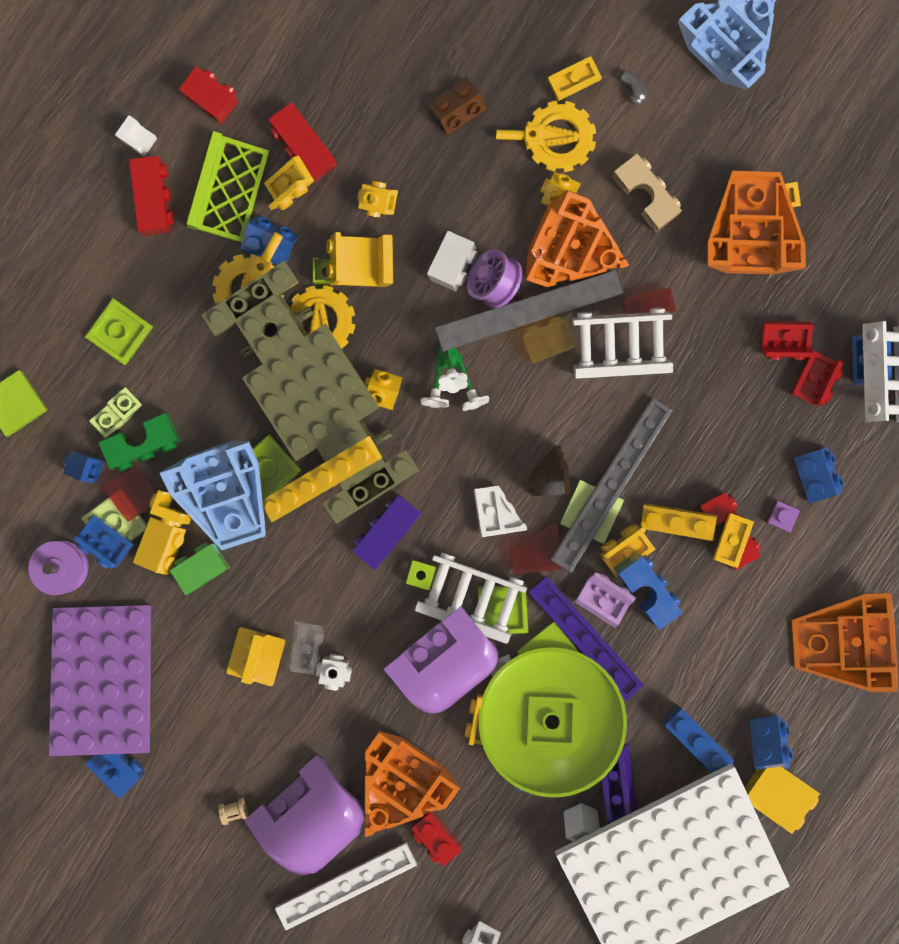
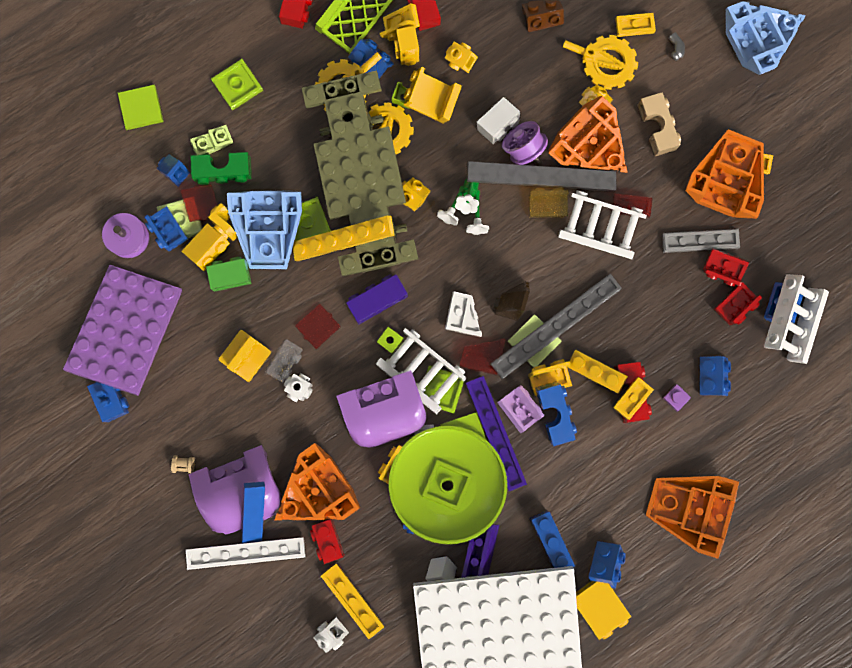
camera: 15 degrees right, 5 degrees down
(307, 210) = (407, 46): none -> yellow brick
(328, 589) = (318, 326): none -> clear red piece
(337, 839) = (253, 512): none -> tile
(491, 894) = (352, 601): none -> yellow plate
(746, 316) = (700, 240): none -> light grey tile

